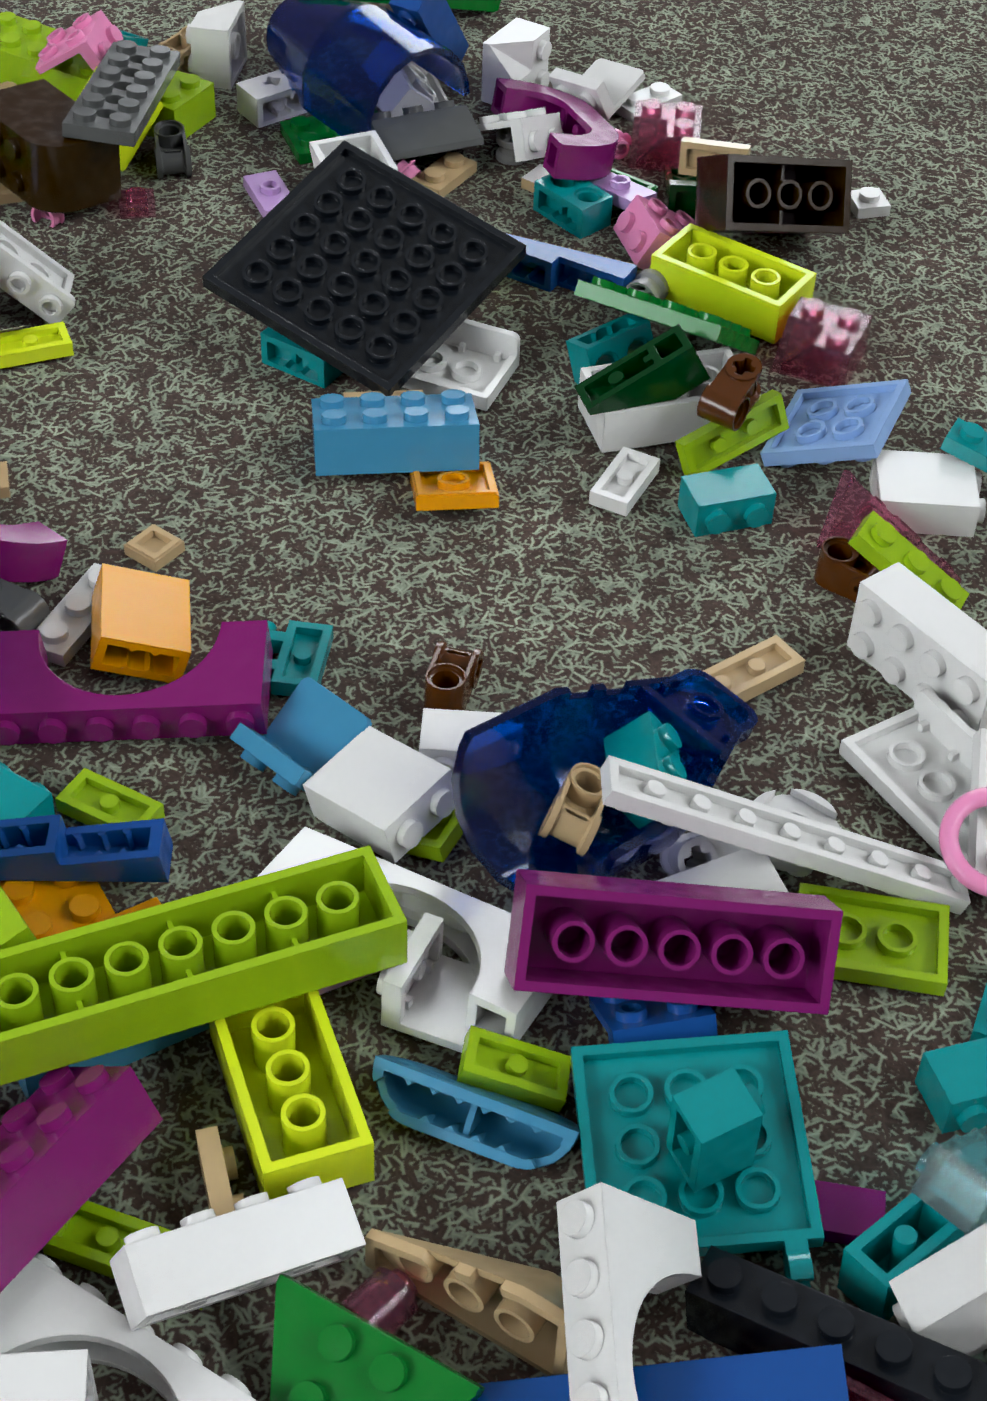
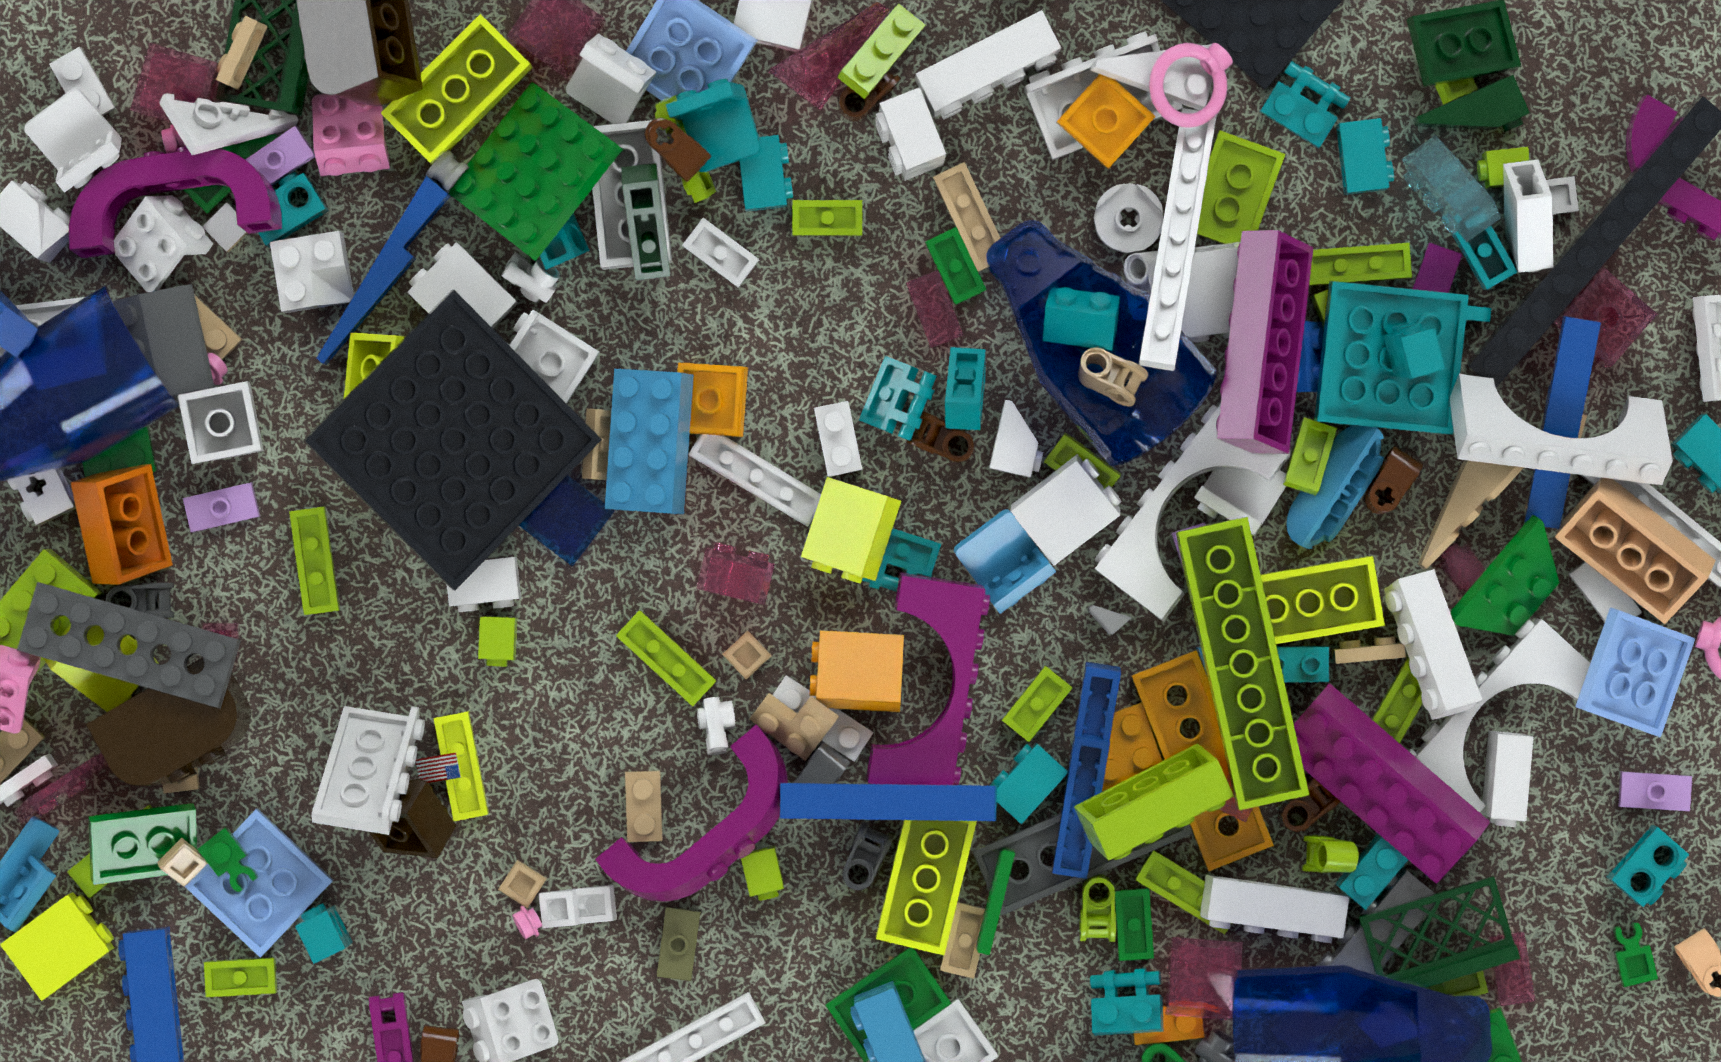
camera: 75 degrees left, 45 degrees up
(70, 519) = (716, 718): none -> white plate
(73, 572) = (796, 731): none -> tan plate
(143, 481) = (666, 658): none -> lime plate
(154, 358) = (497, 640): none -> lime brick
(189, 1086) = (1304, 663): none -> teal brick
(204, 247) = (314, 560): none -> lime plate
(215, 344) = (491, 582): none -> white brick
(235, 859) = (1109, 620): none -> light grey slope
(243, 127) = (121, 524): none -> orange slope
(248, 499) = (736, 574): none -> clear pink slope
(287, 400) = (567, 520): none -> clear blue plate
(319, 597) = (850, 530): none -> neon yellow brick
(369, 540) = (757, 476): none -> white tile
(430, 583) = (838, 438): none -> white brick
(492, 629) = (889, 396): none -> teal plate
(500, 1189) = (1395, 477): none -> reddish brown piece
(516, 666) = (965, 388): none -> teal brick
(520, 209) = (312, 271): none -> white slope
(527, 305) = (462, 273): none -> white brick
(552, 352) = (534, 280): none -> white plate
(613, 657) = (934, 309): none -> clear pink plate
(642, 138) = (217, 125): none -> white wing
(679, 657) = (955, 266): none -> green plate
(693, 559) = (826, 217): none -> lime plate
(788, 434) = (719, 122): none -> teal bracket
(801, 367) = (609, 80): none -> white bracket
(820, 556) = (911, 134): none -> white brick
(830, 1118) = (1361, 264): none -> lime plate
(913, 773) = (1105, 119): none -> light orange plate

